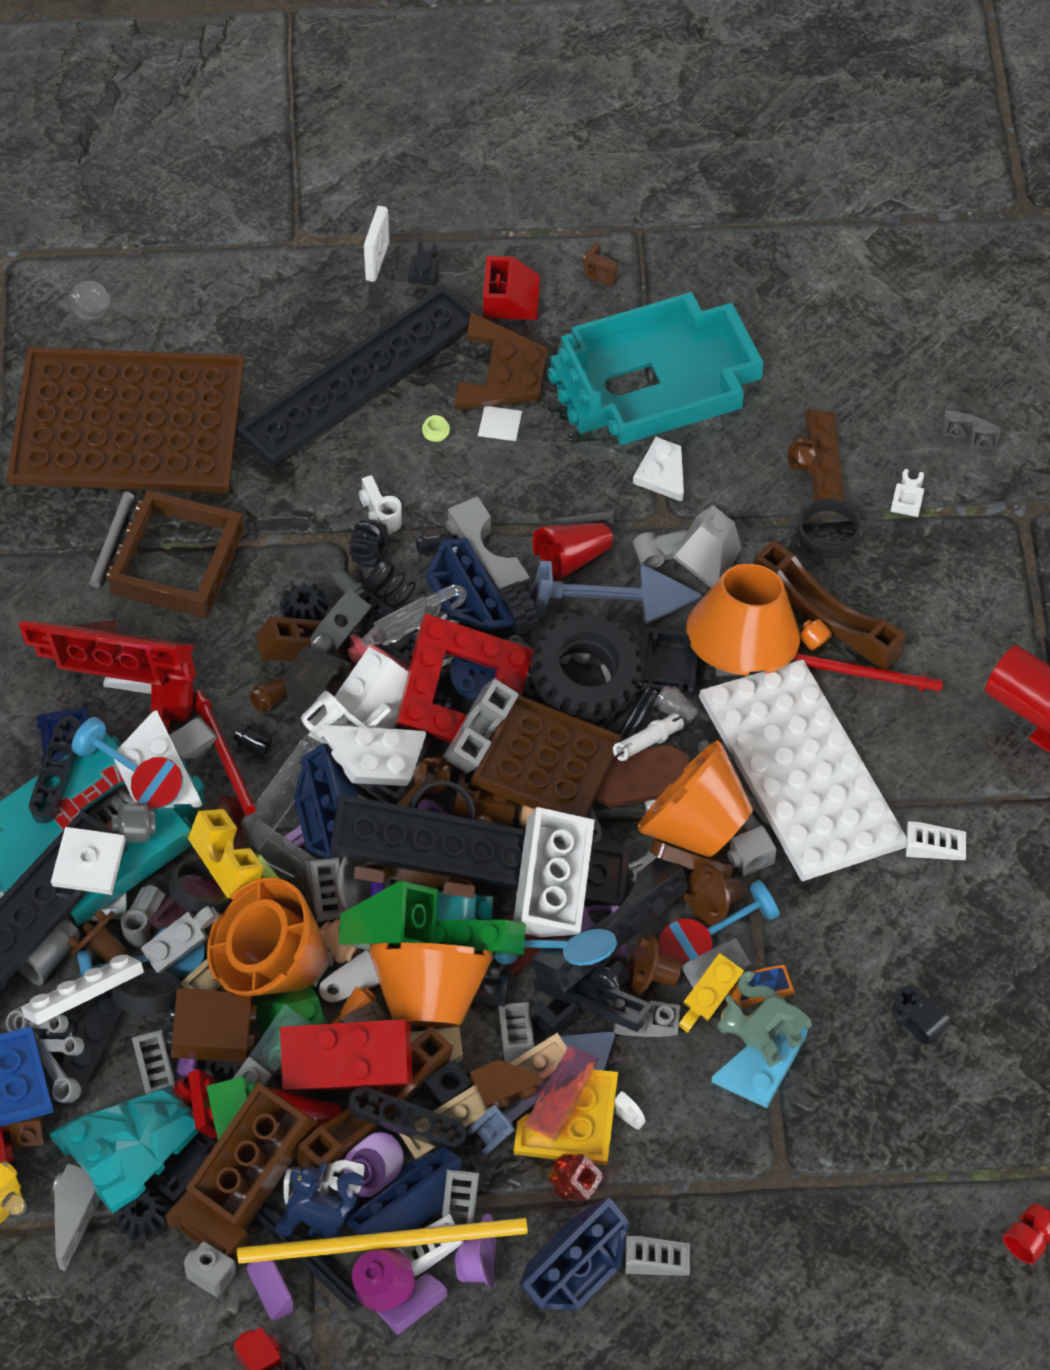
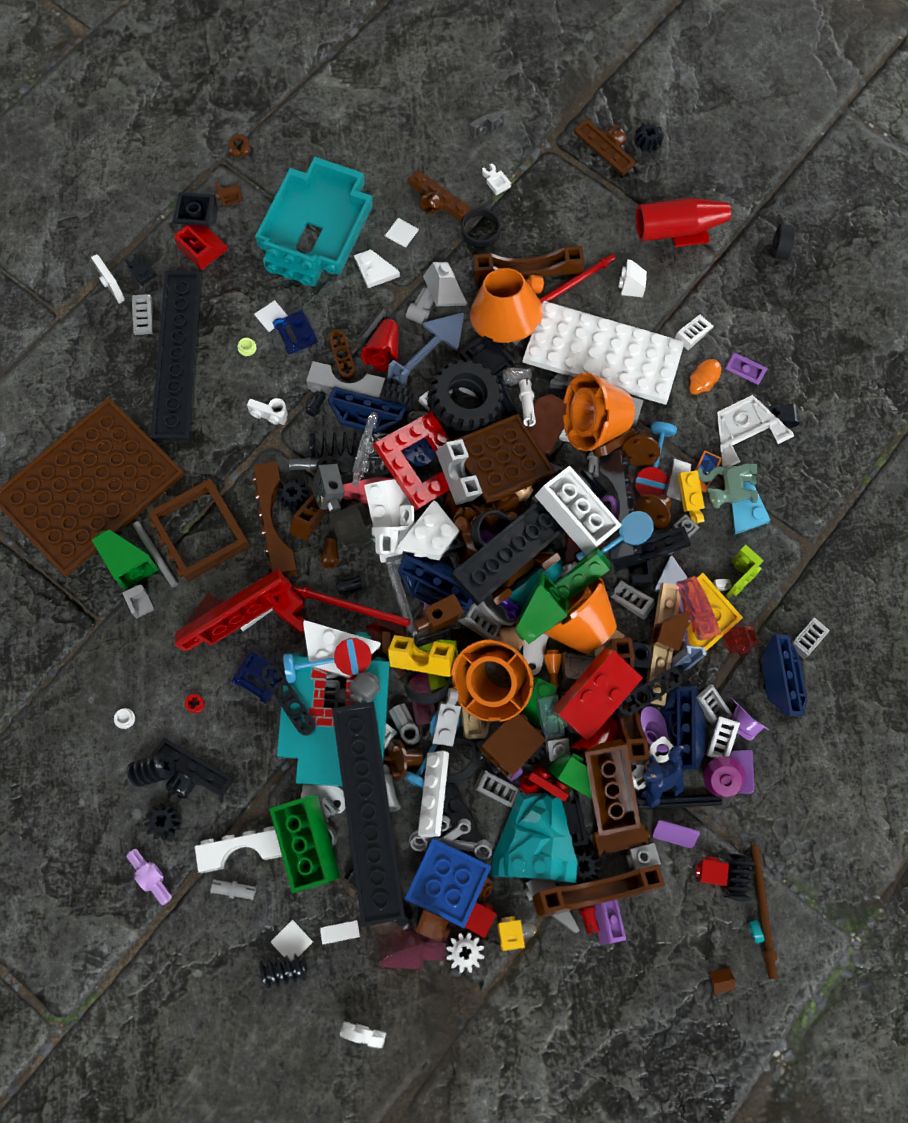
camera: 50 degrees left, 15 degrees up
(43, 564) = (138, 601): none -> light grey panel
(70, 512) = (123, 559): none -> green slope
(88, 860) = (367, 730): white plate -> none
(95, 1259) = (589, 918): none -> red pin
(106, 1292) = (609, 923): none -> medium lavender slope
(159, 1270) = (584, 895): none -> reddish brown arch
(193, 742) = (329, 614): light grey slope -> none
(217, 653) = (268, 481): none -> reddish brown arch
(286, 830) = (445, 612): none -> reddish brown torso
(369, 543) = (288, 433): black gear -> none
(382, 295) = (142, 302): none -> light grey slope
(382, 1240) = (709, 762): yellow piece -> none
(510, 462) = (301, 329): none -> clear blue plate
(513, 370) = (247, 281): reddish brown wing -> none
(521, 533) = (341, 361): none -> reddish brown beam
(543, 252) = (195, 209): none -> black slope
(657, 1119) = (748, 563): none -> lime bracket
(672, 239) = (233, 149): none -> reddish brown piece
(739, 460) = (401, 232): none -> white sticker
(860, 975) = (744, 421): none -> white wing
(887, 897) = (705, 376): none -> orange arm
(926, 723) = (632, 280): none -> white slope
(948, 933) = (746, 368): none -> medium lavender slope

